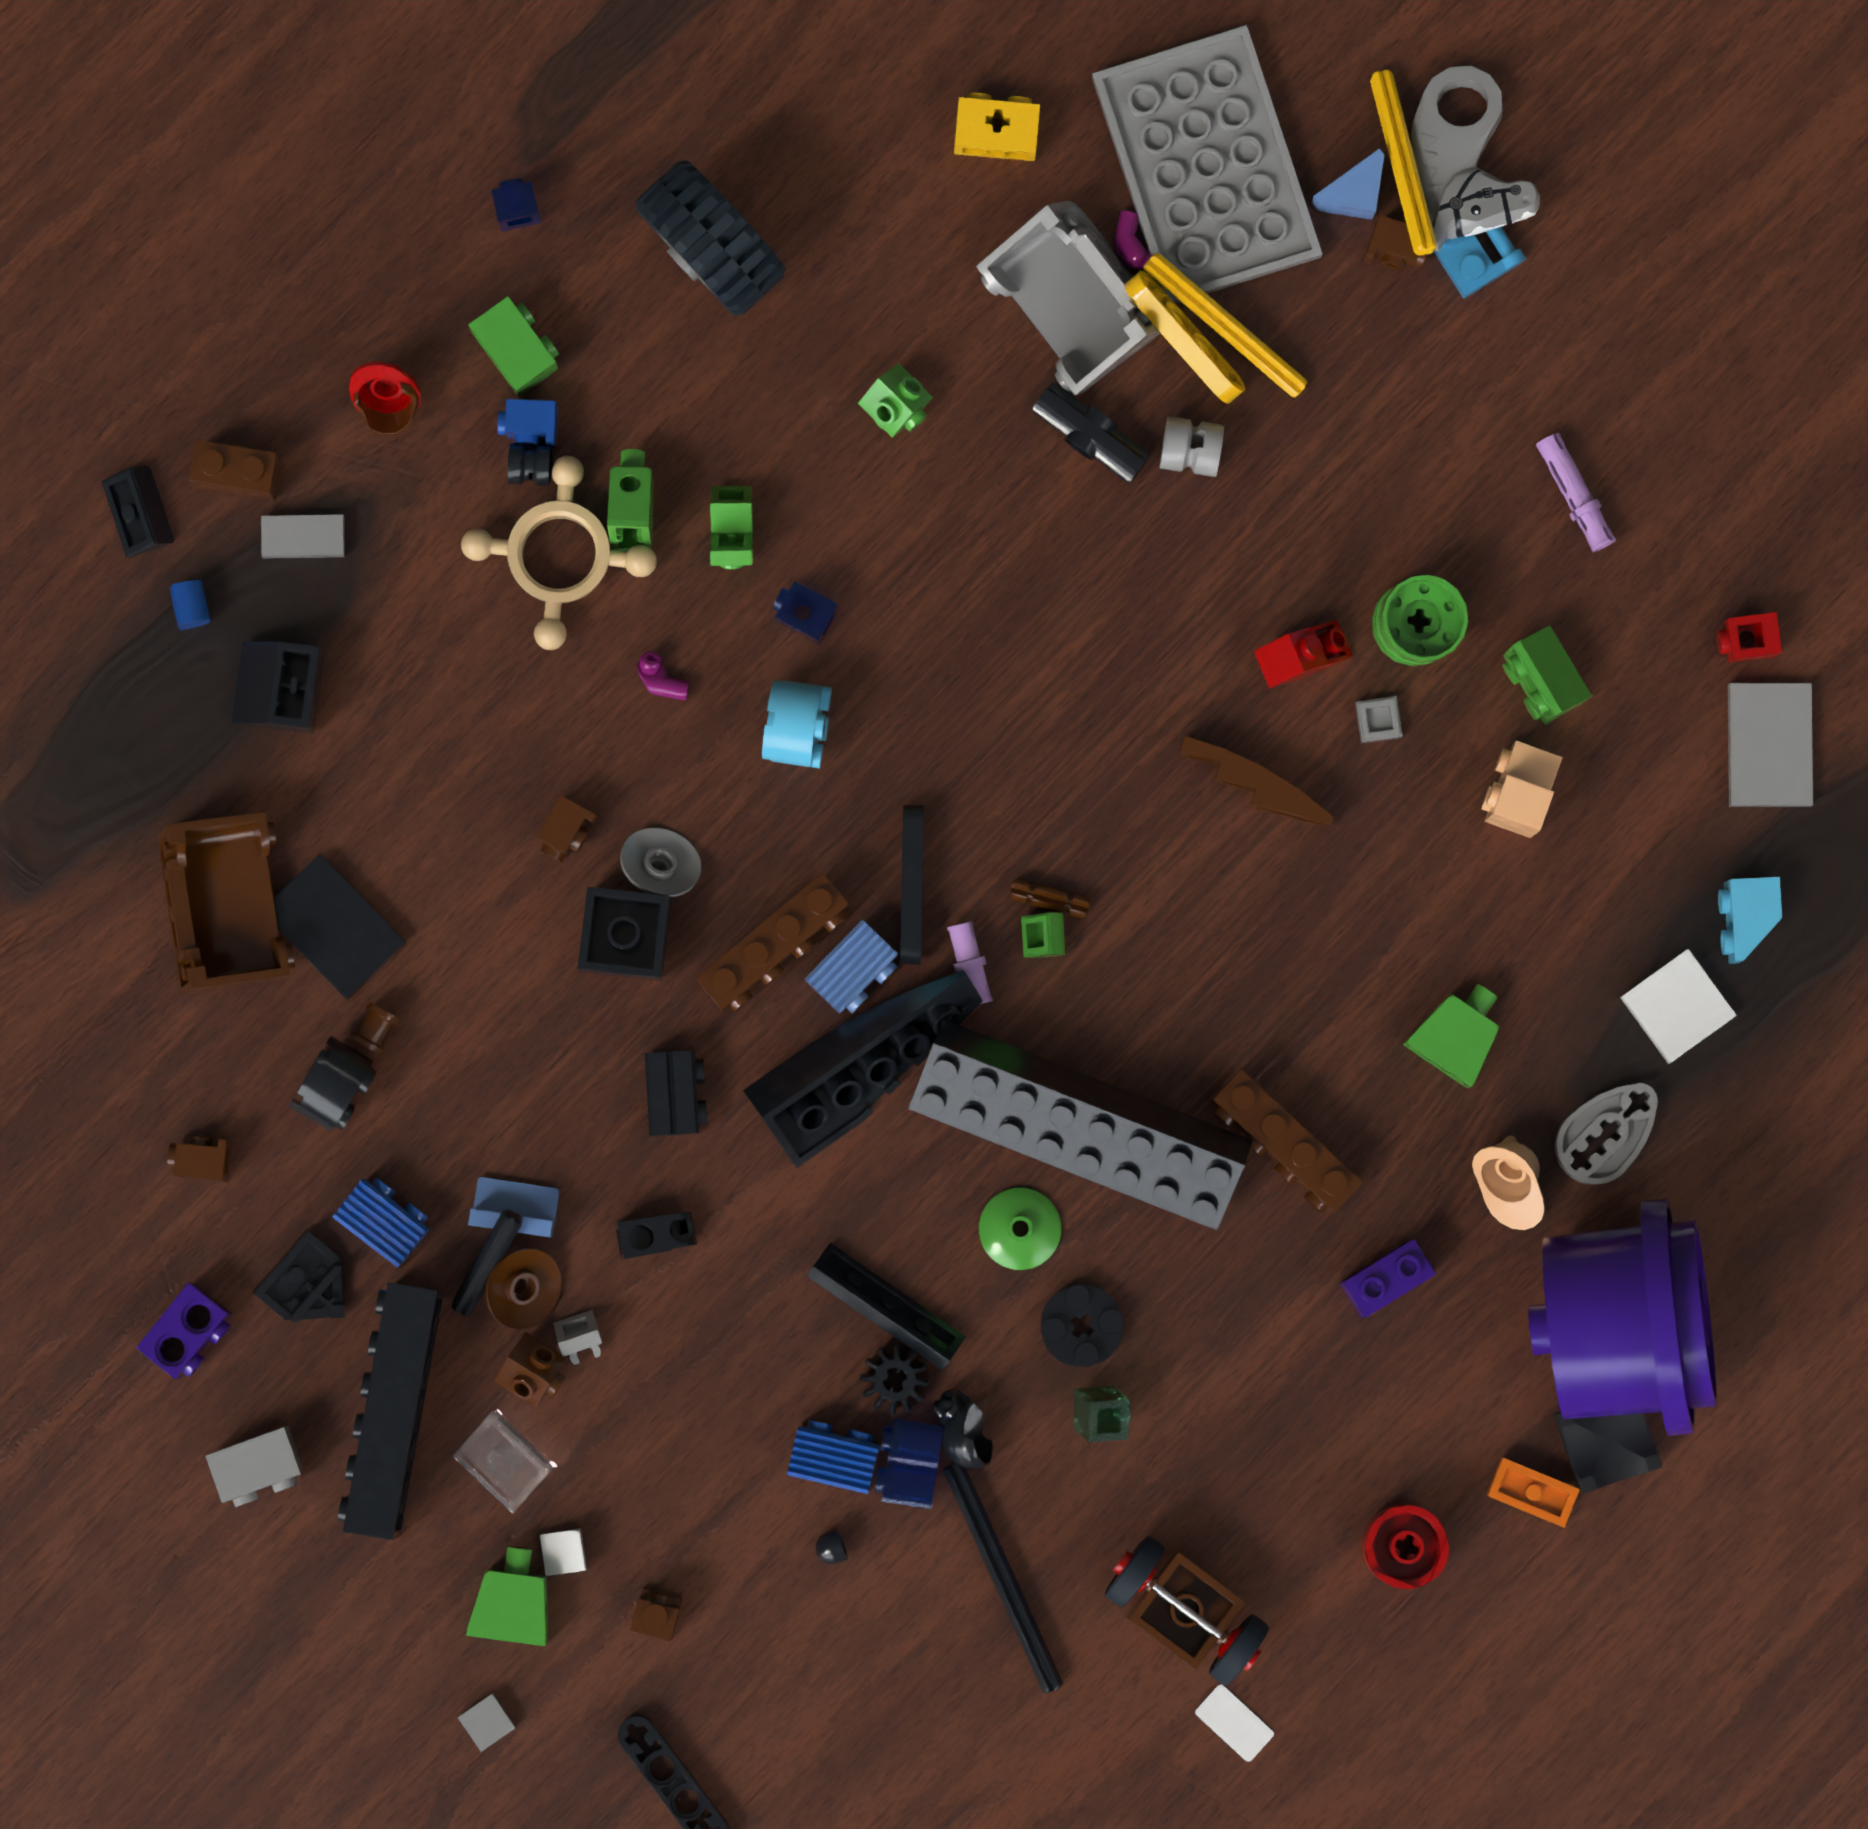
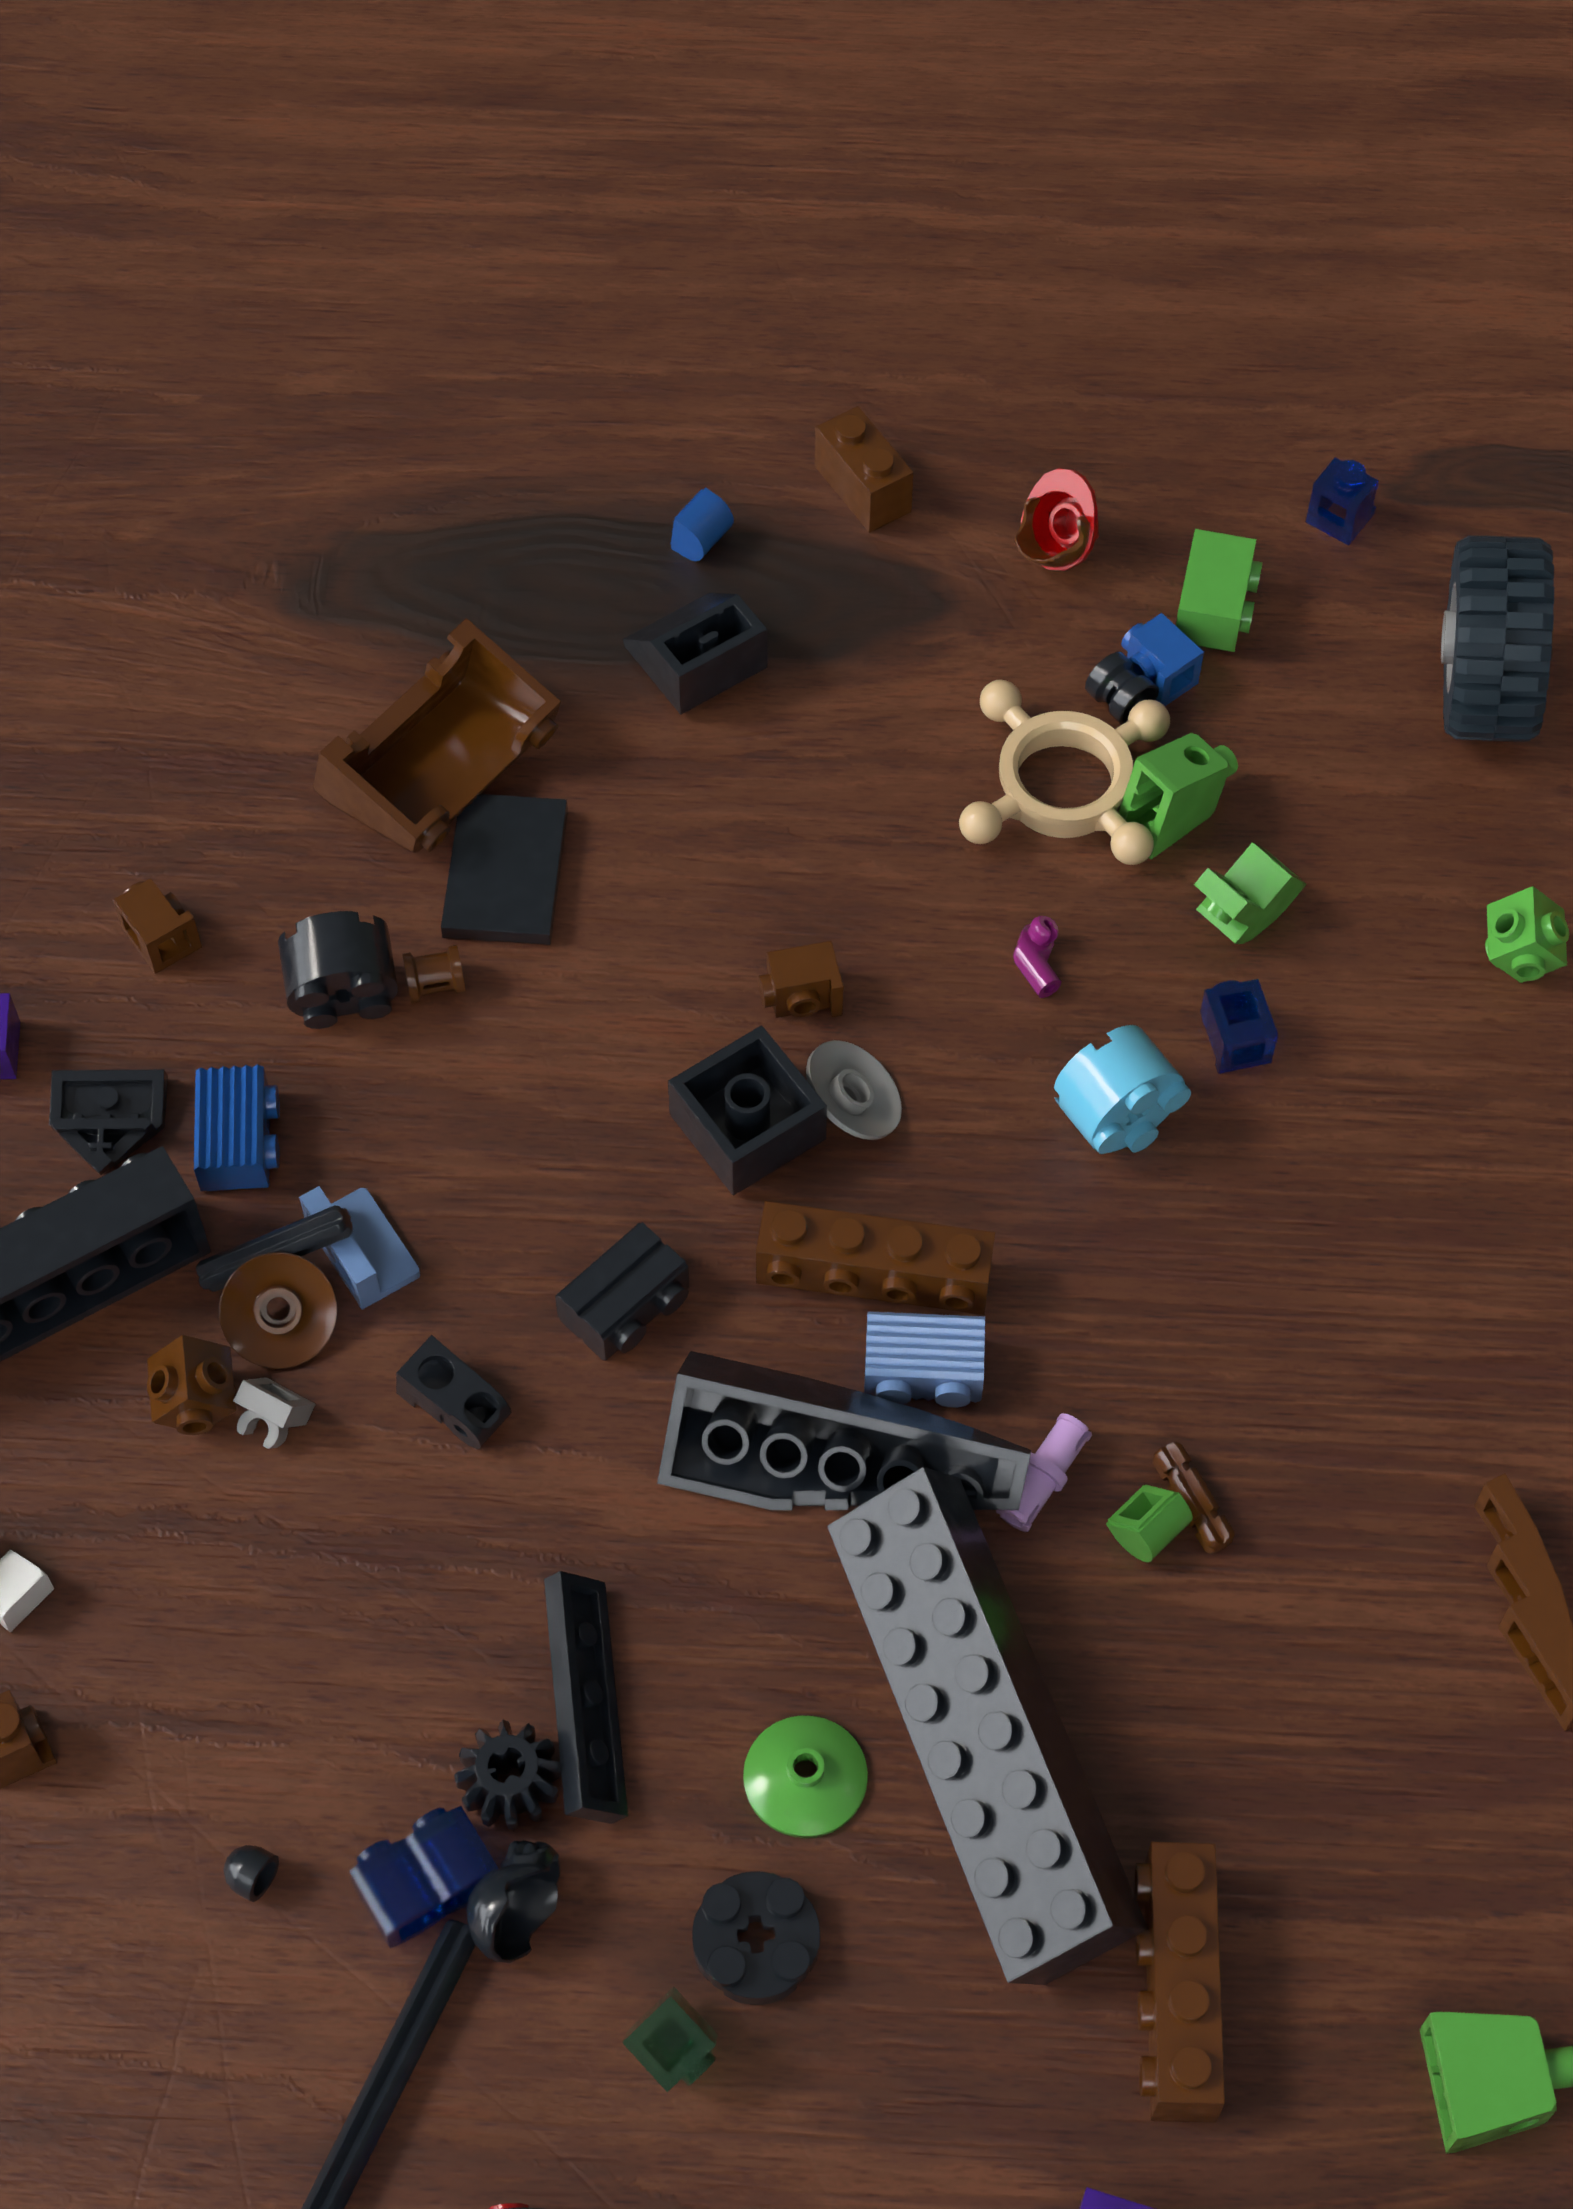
camera: 55 degrees right, 25 degrees down
(137, 511) = (748, 436): black slope -> none
(303, 536) = (859, 571): light grey tile -> none
(504, 1460) = (70, 1443): clear slope -> none
(833, 1457) = (357, 1781): blue brick -> none
(911, 885) = (1068, 1345): black beam -> none

